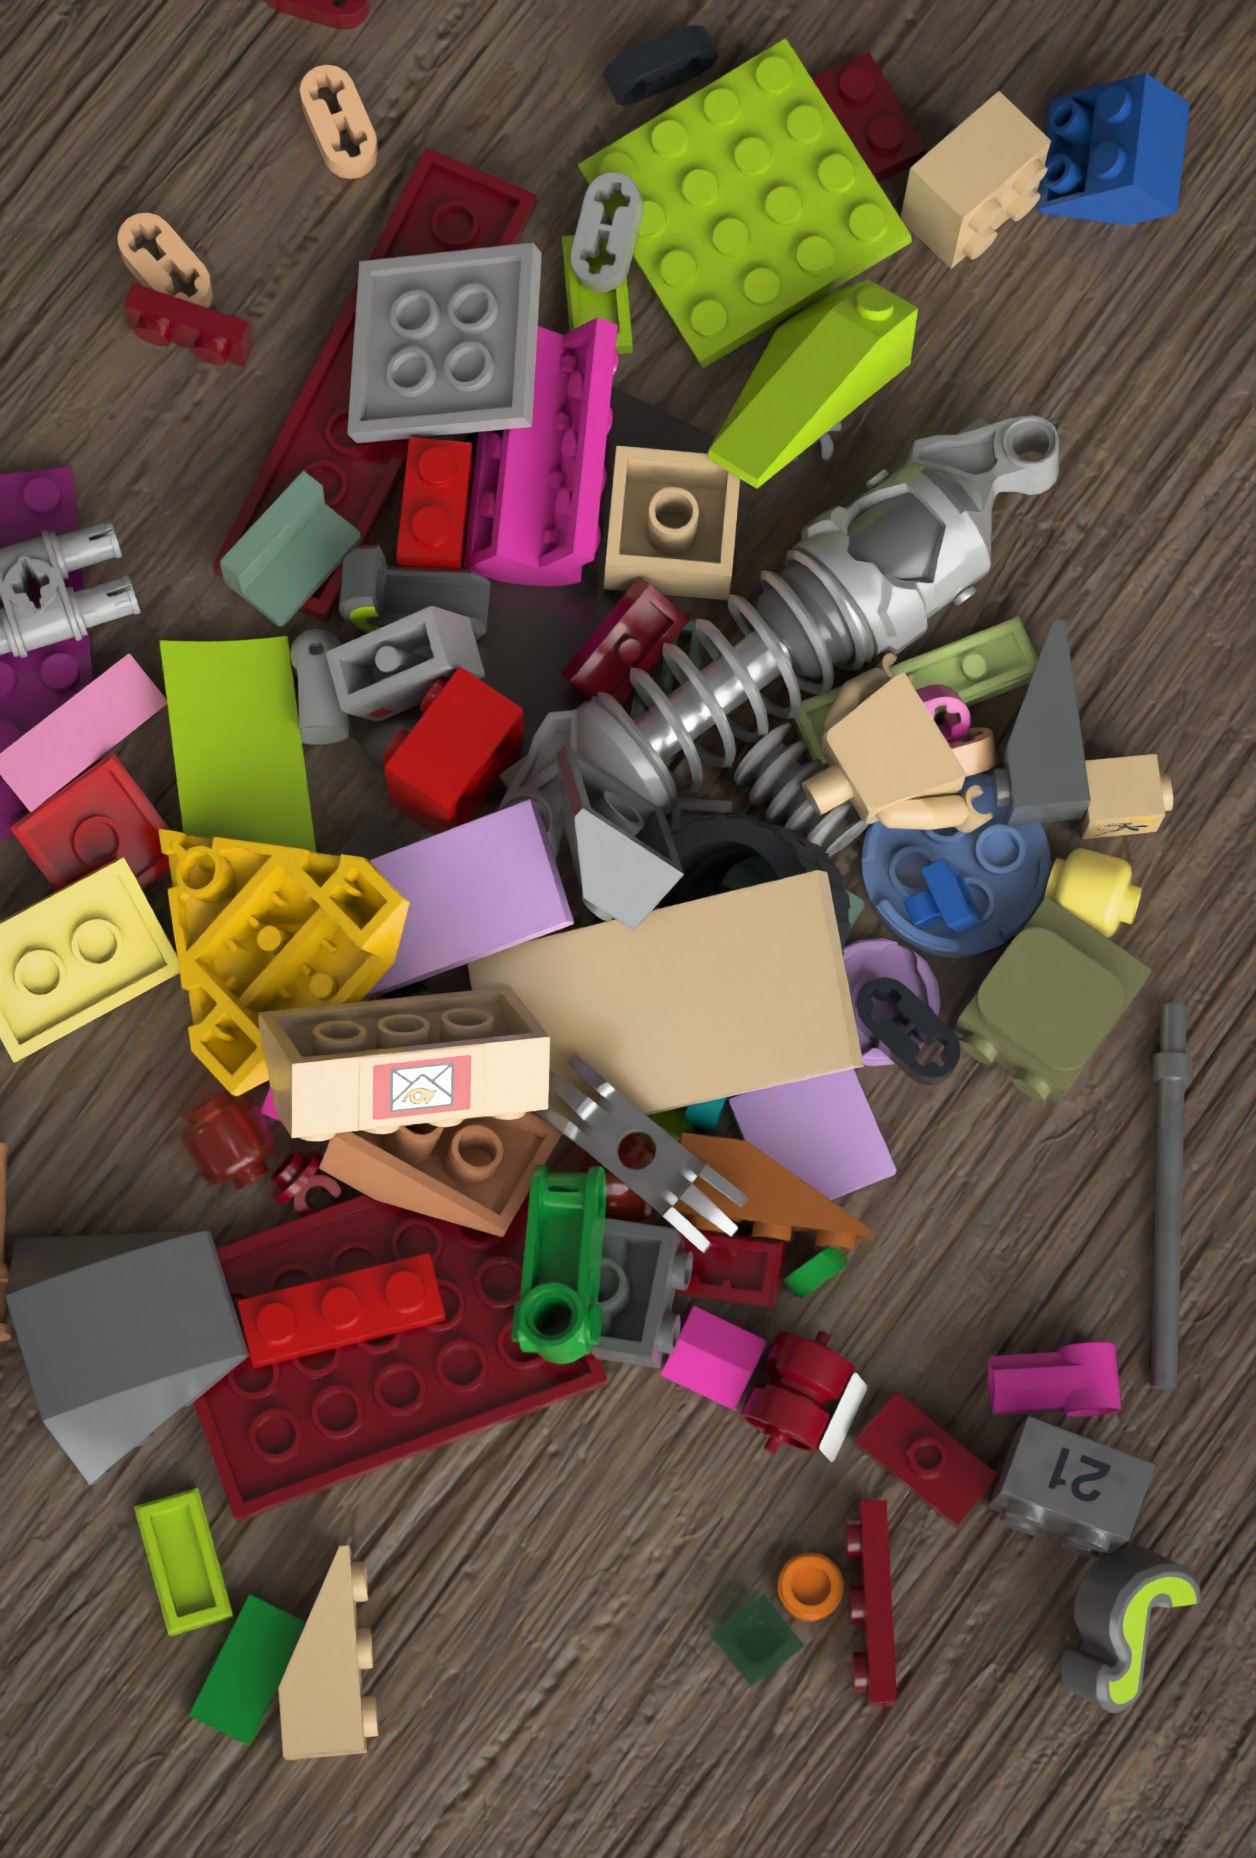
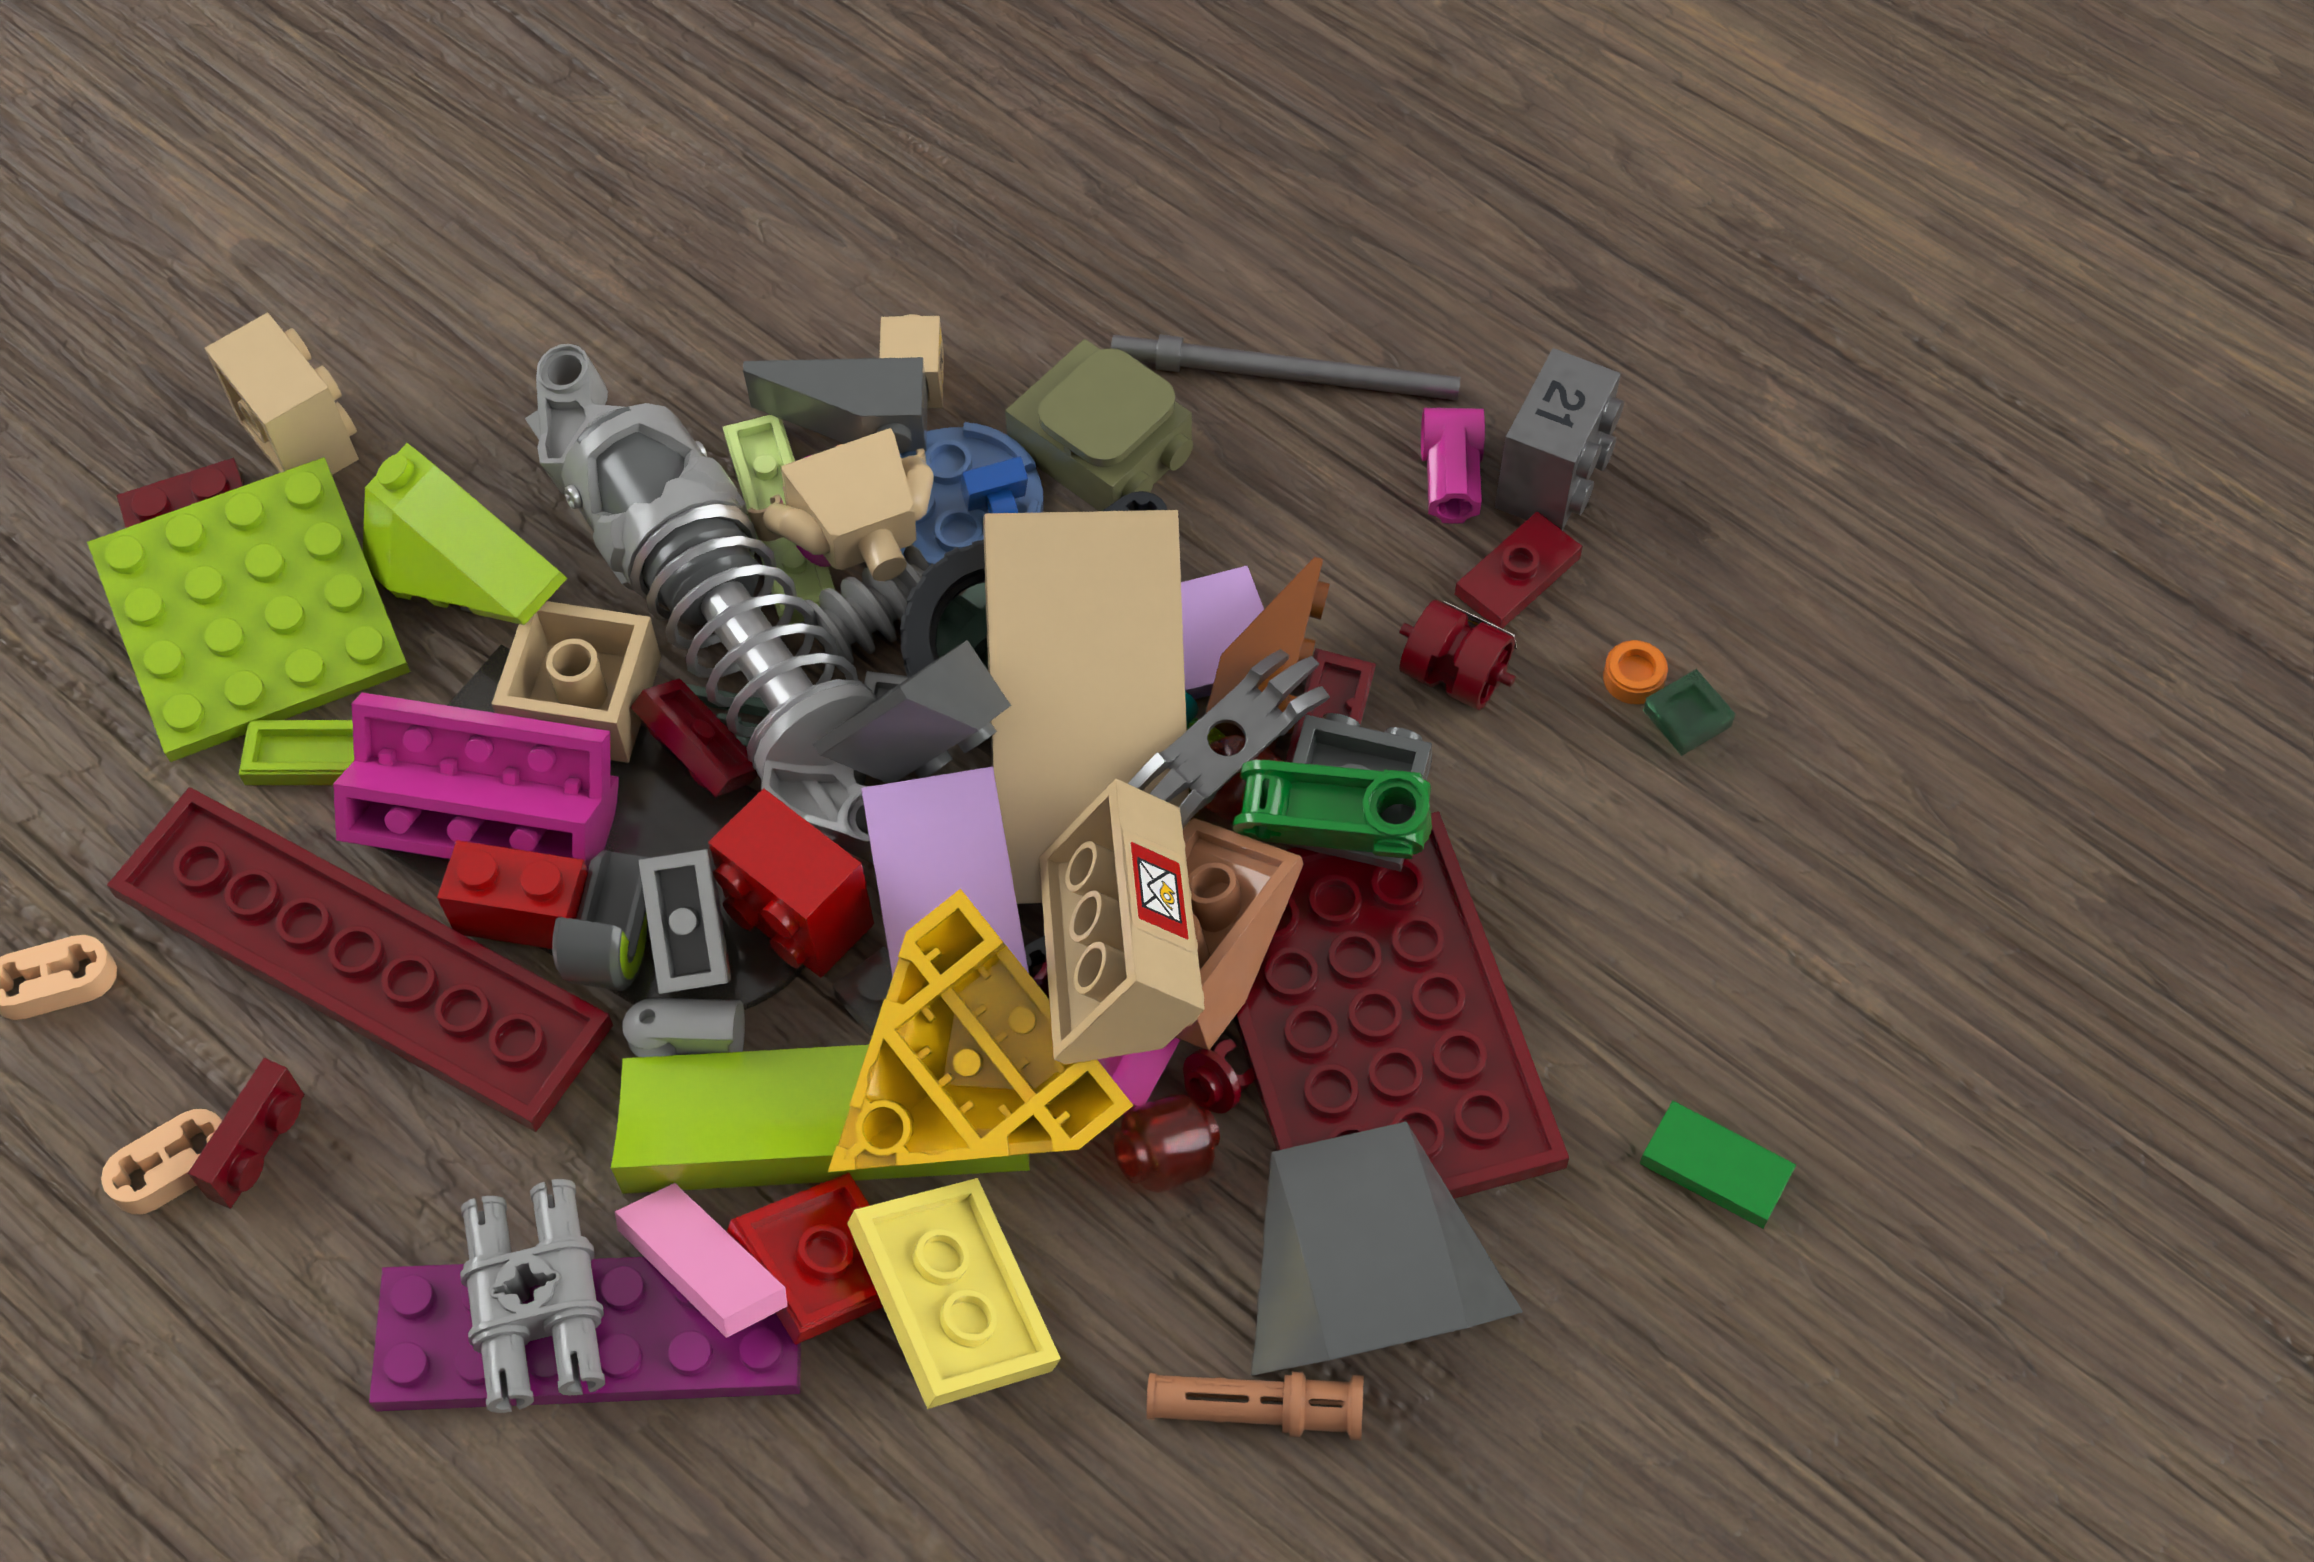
camera: 80 degrees left, 15 degrees down
(184, 1562) = (1605, 1222): lime tile -> none
(289, 551) = (535, 1035): sand green panel -> none
(322, 1685) = (1746, 1085): tan slope -> none
(341, 1310) = (1359, 1035): red plate -> none
(445, 343) = (340, 856): light grey plate -> none
(593, 229) = (245, 732): light grey beam -> none
(660, 65) = (77, 670): black beam -> none
(714, 1358) = (1426, 711): dark pink piece -> none
(815, 1271) = (1340, 632): green tile -> none
(871, 1604) = (1656, 612): dark red plate -> none
(1095, 889) = (995, 383): light yellow head -> none
(1115, 152) = (292, 286): blue slope -> none
(1115, 1619) = (1682, 422): dark grey animal -> none

